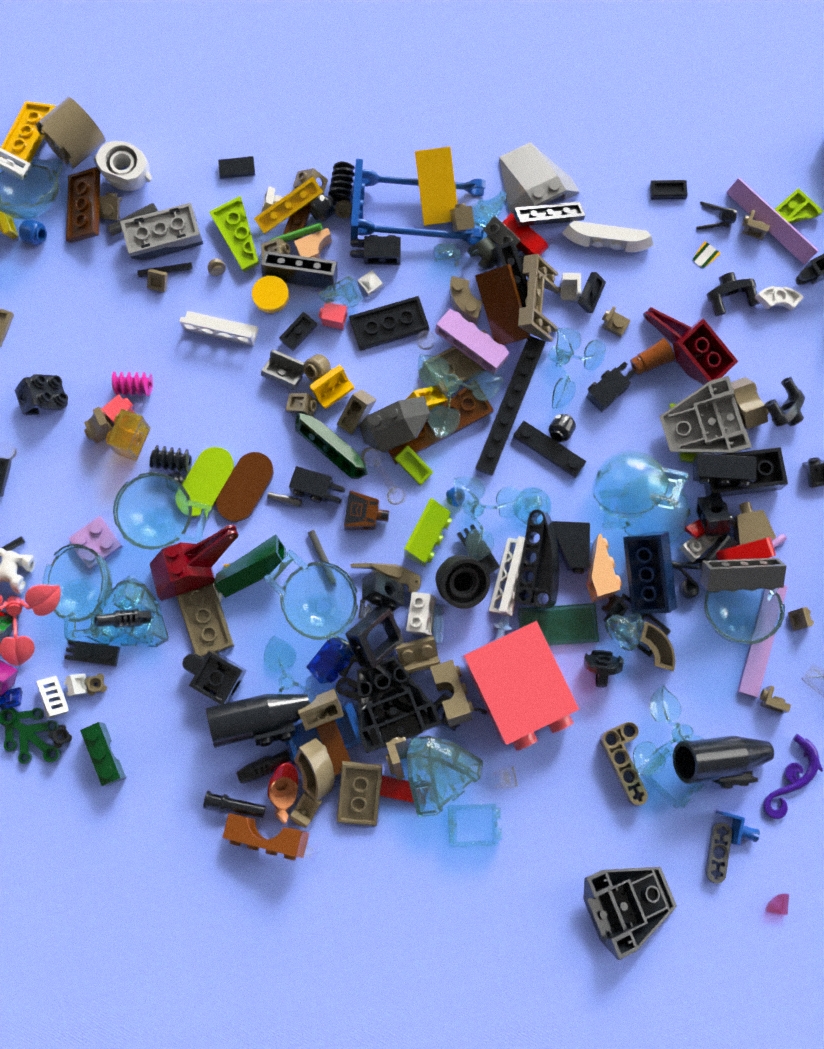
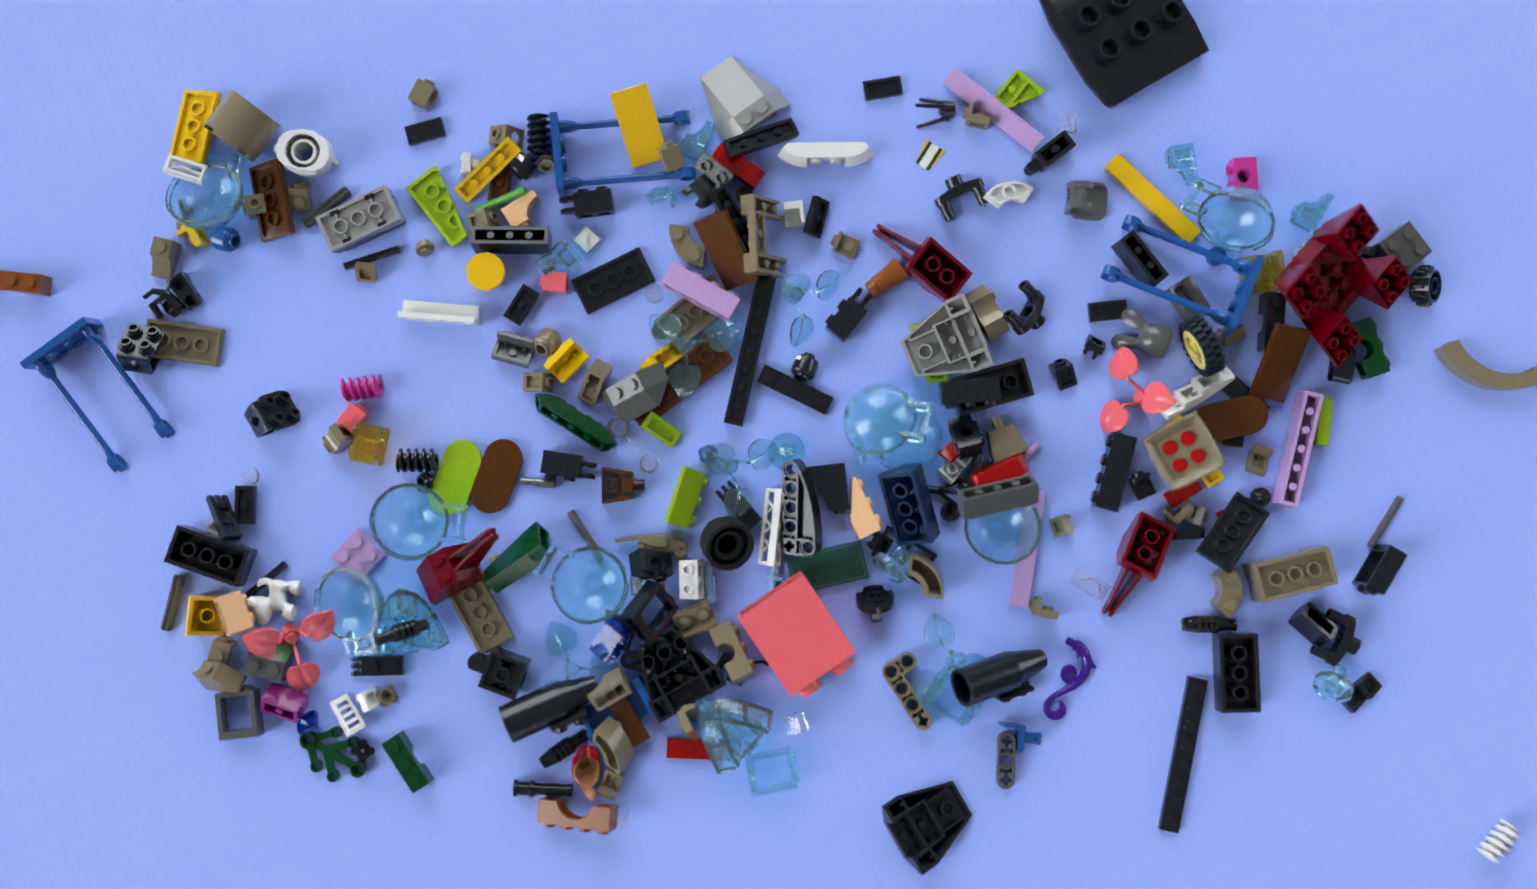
camera: 10 degrees left, 10 degrees up
(65, 205) = (254, 205): none -> dark tan bracket
(241, 134) = (423, 94): none -> dark tan brick
(359, 793) = (659, 759): dark tan tile -> none
(778, 904) = (1066, 798): clear pink tile -> none

